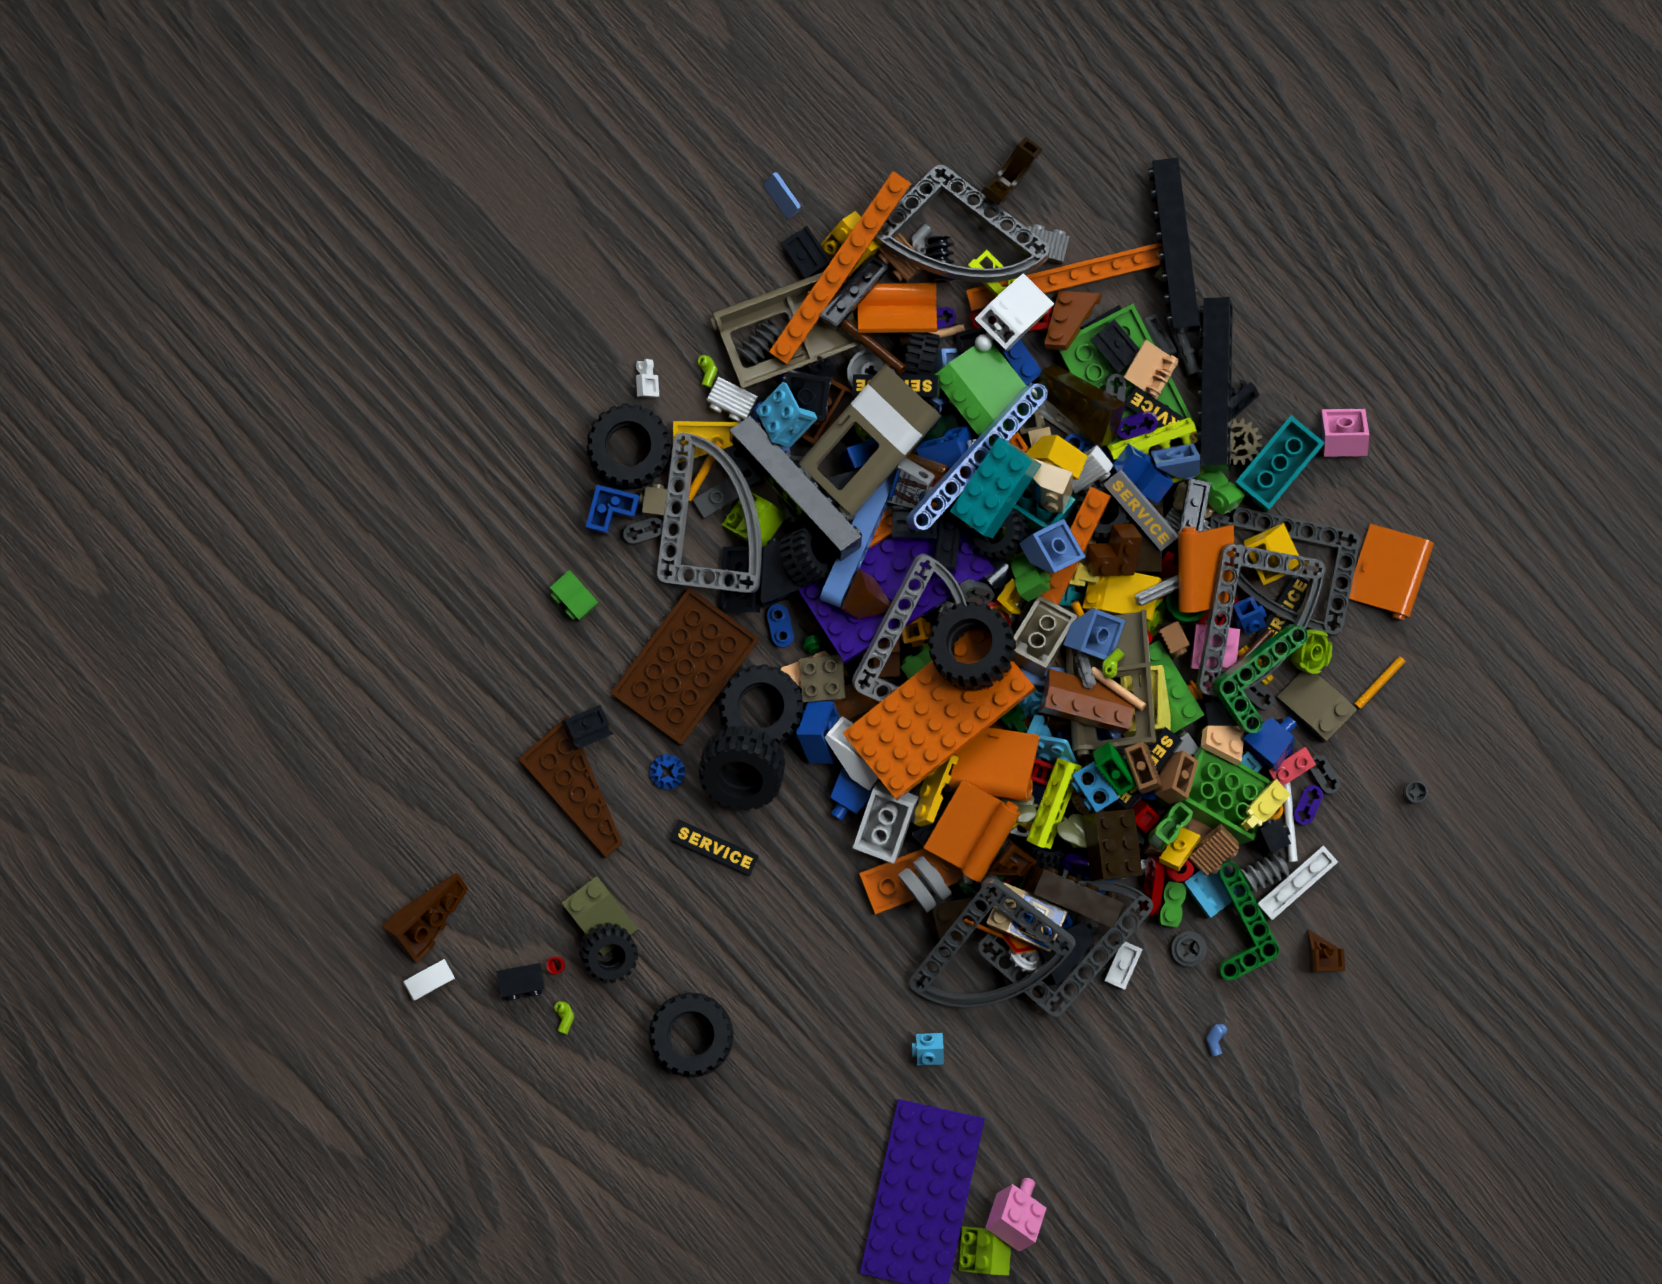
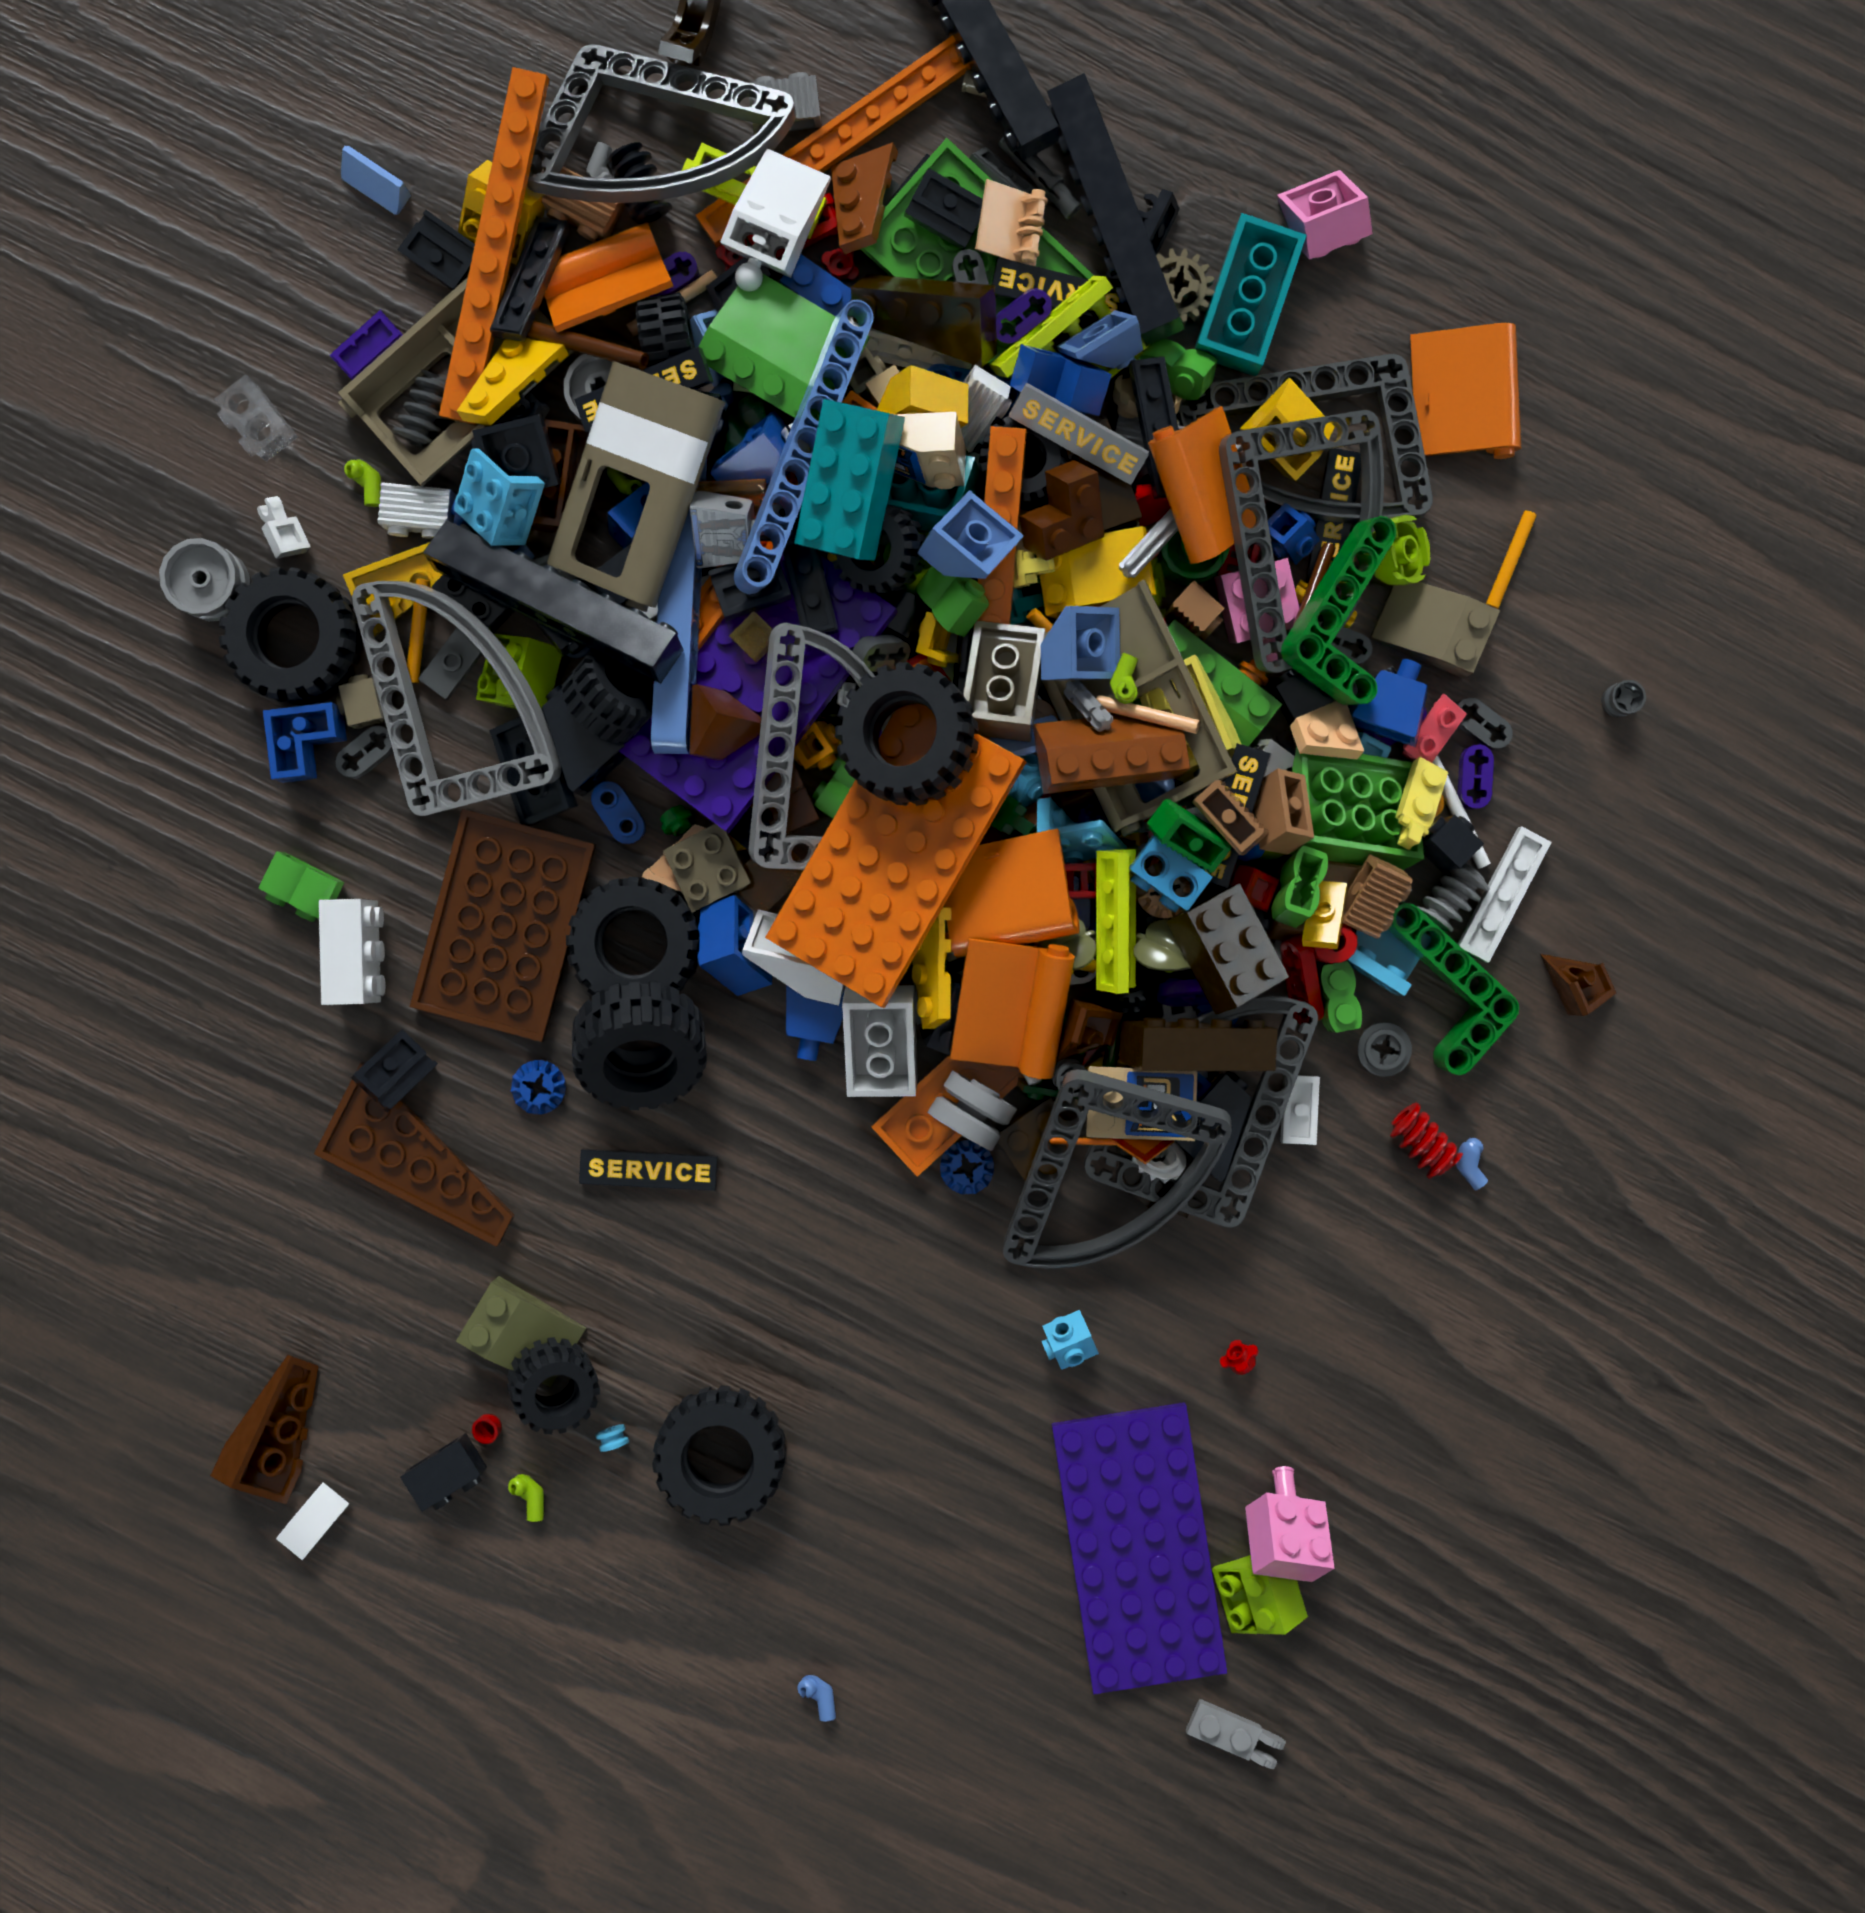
camera: 20 degrees left, 5 degrees up
(577, 393) = (185, 573): none -> light grey wheel
(591, 646) = (351, 951): none -> white brick
(629, 1000) = (612, 1438): none -> medium azure bush
(662, 308) = (260, 414): none -> clear brick
(693, 1206) = (820, 1691): none -> medium blue arm
(740, 291) = (366, 344): none -> dark purple plate
(818, 345) = (506, 375): none -> yellow wing
(904, 554) = (752, 636): none -> clear yellow plate
(914, 929) = (959, 1181): none -> blue gear
(1028, 1102) = (1240, 1357): none -> red plate
(1045, 356) = (837, 256): none -> red plate
(1191, 1013) = (1425, 1140): none -> red piece

